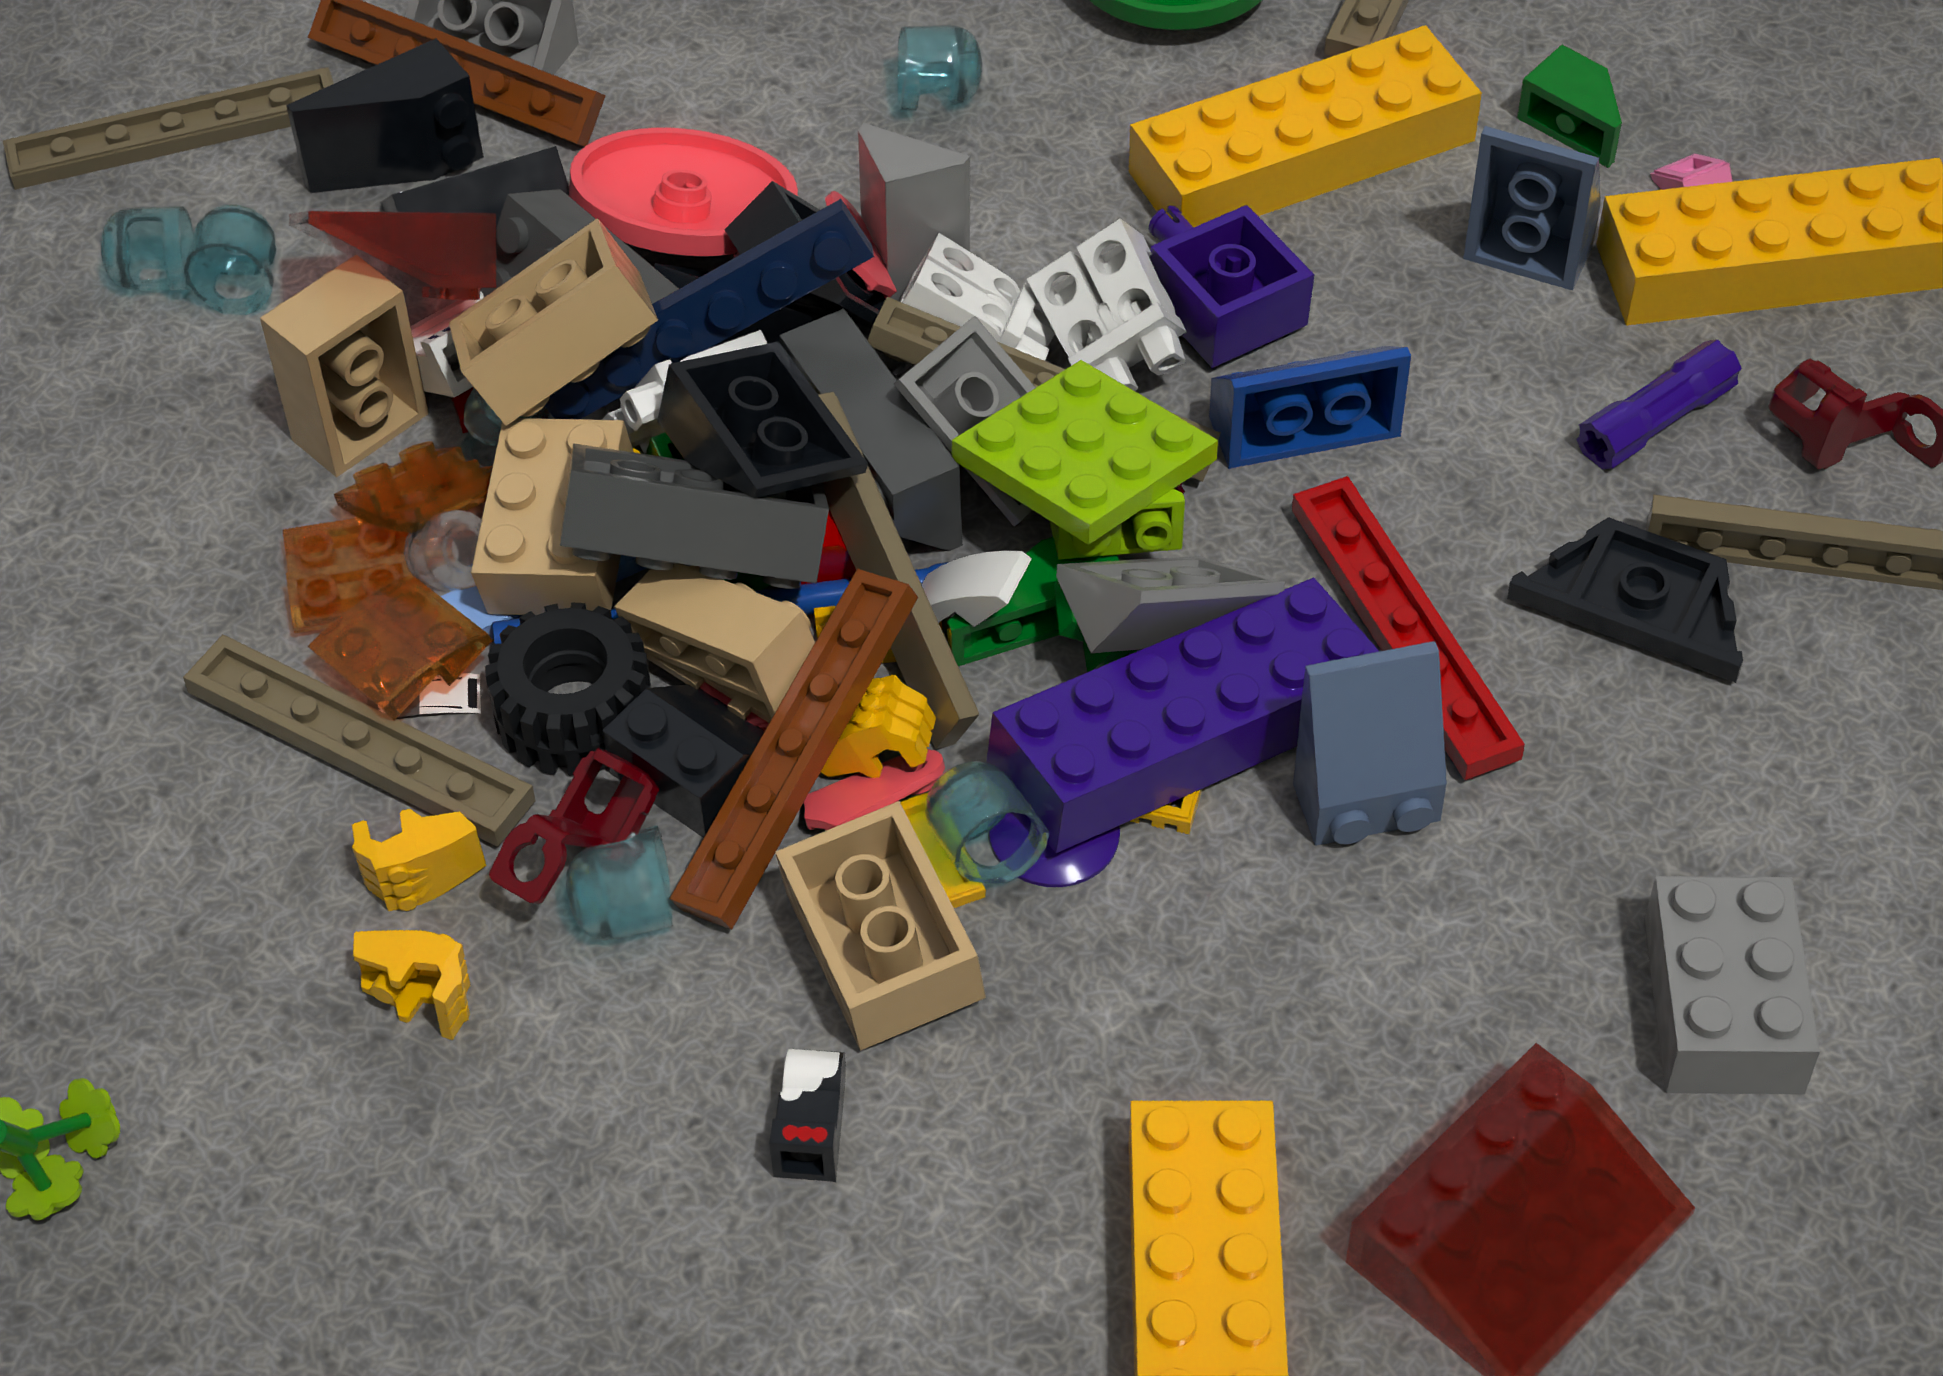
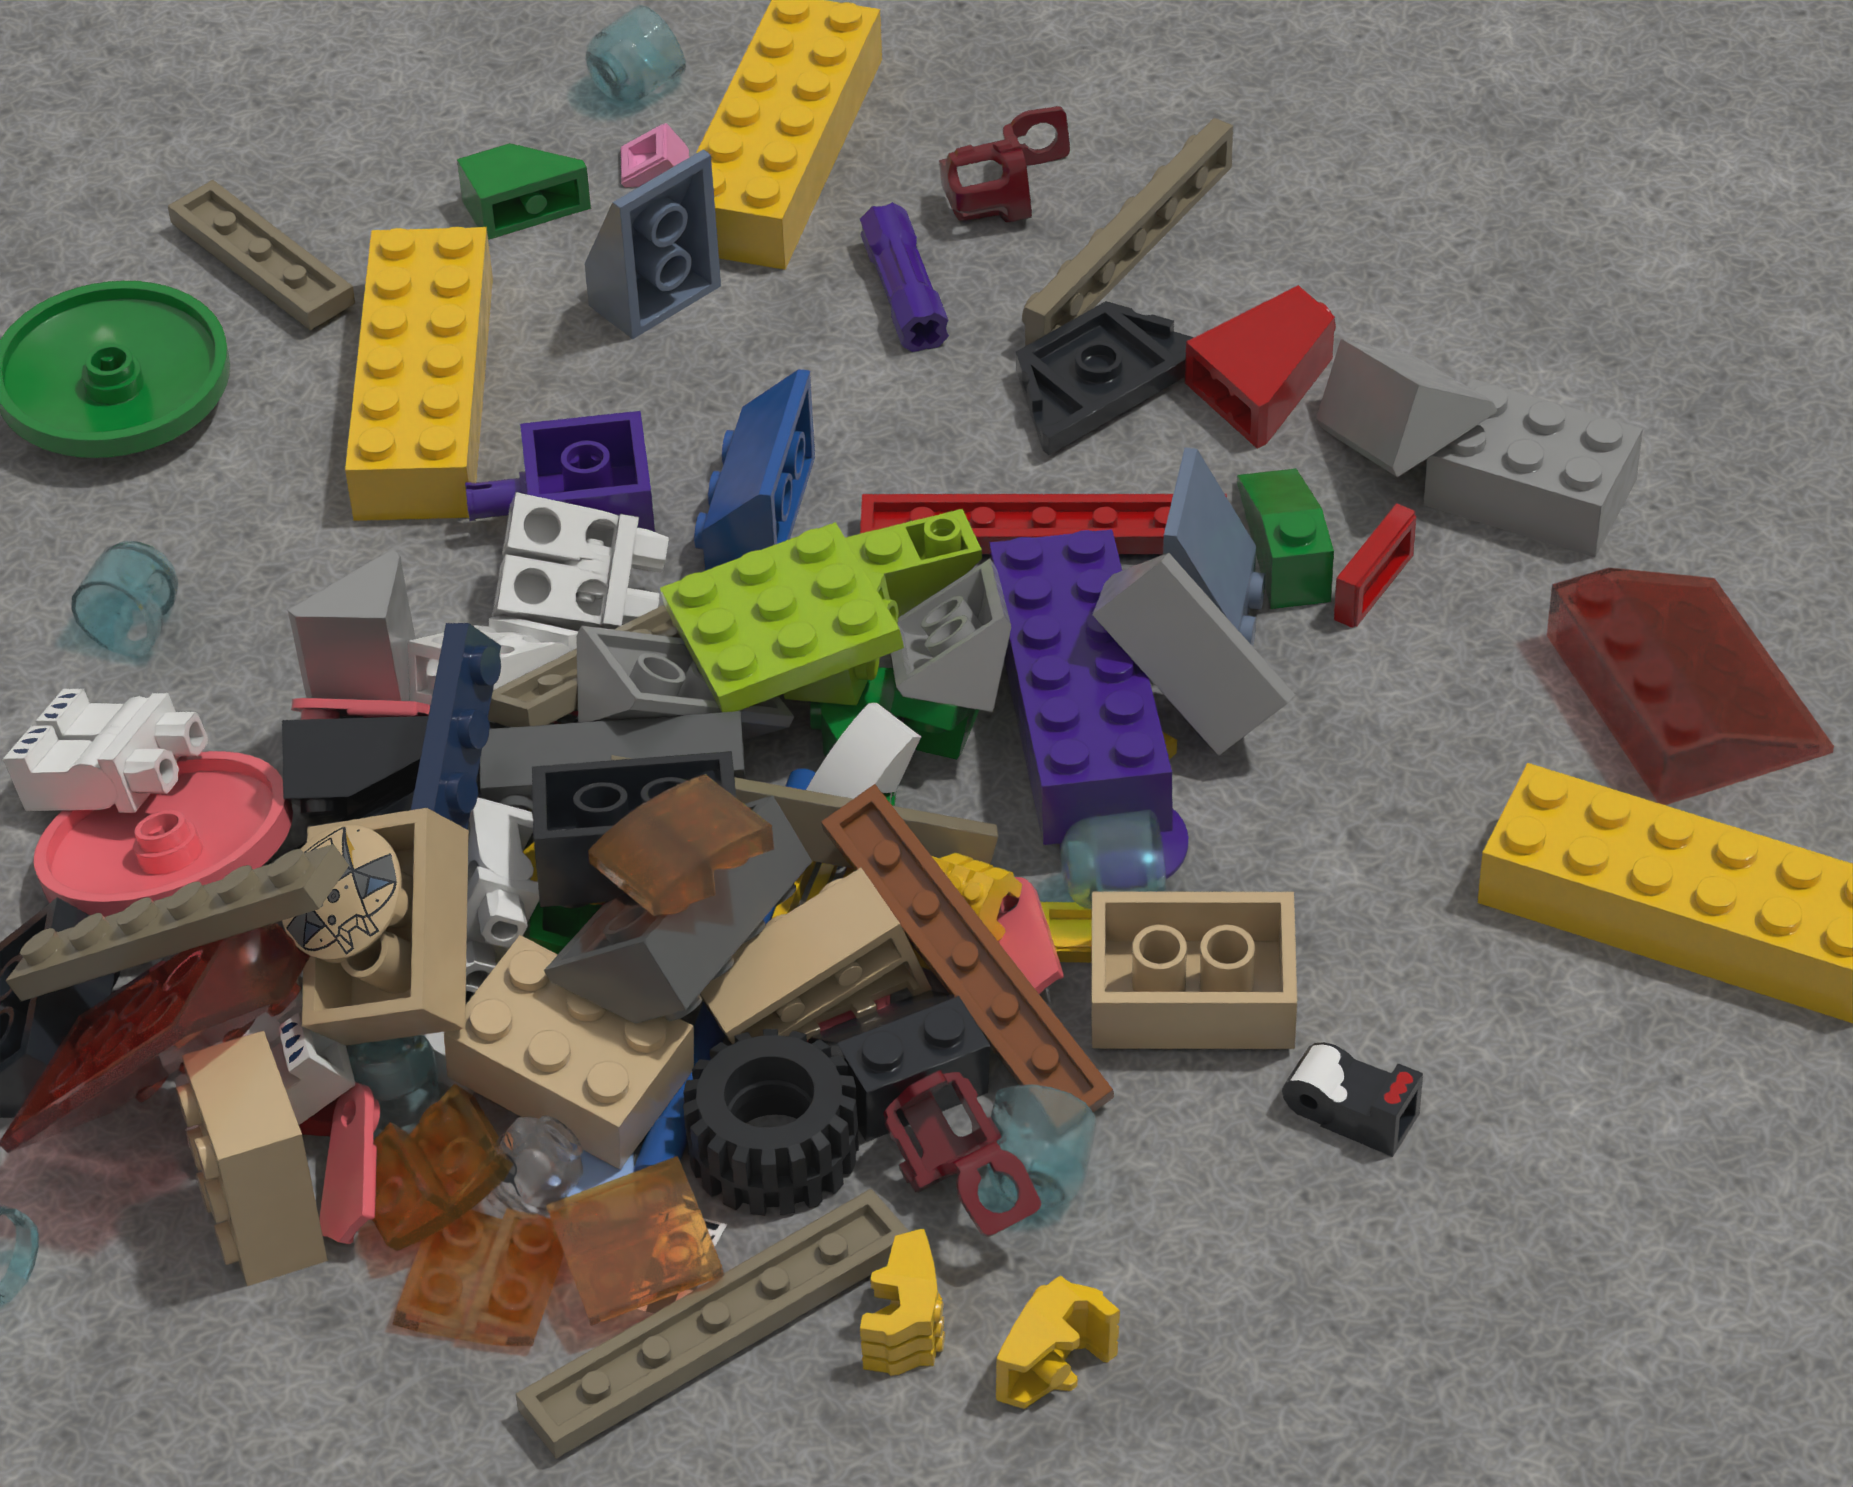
camera: 65 degrees left, 5 degrees down
(436, 422) = (350, 1166): none -> coral piece
(468, 187) = (177, 923): none -> dark tan plate
(535, 264) = (361, 902): none -> tan dish
(686, 449) = (674, 842): none -> clear orange slope
(751, 134) = (102, 752): none -> white hips
(1232, 765) = (1190, 651): none -> light grey slope
(1269, 533) = (919, 556): none -> lime slope
(1507, 898) = (1375, 566): none -> red tile
(1509, 812) = (1288, 537): none -> green slope
(1722, 833) = (1395, 406): none -> light grey slope
(1735, 714) = (1262, 362): none -> red slope
(1790, 105) = (634, 56): none -> clear light blue helmet

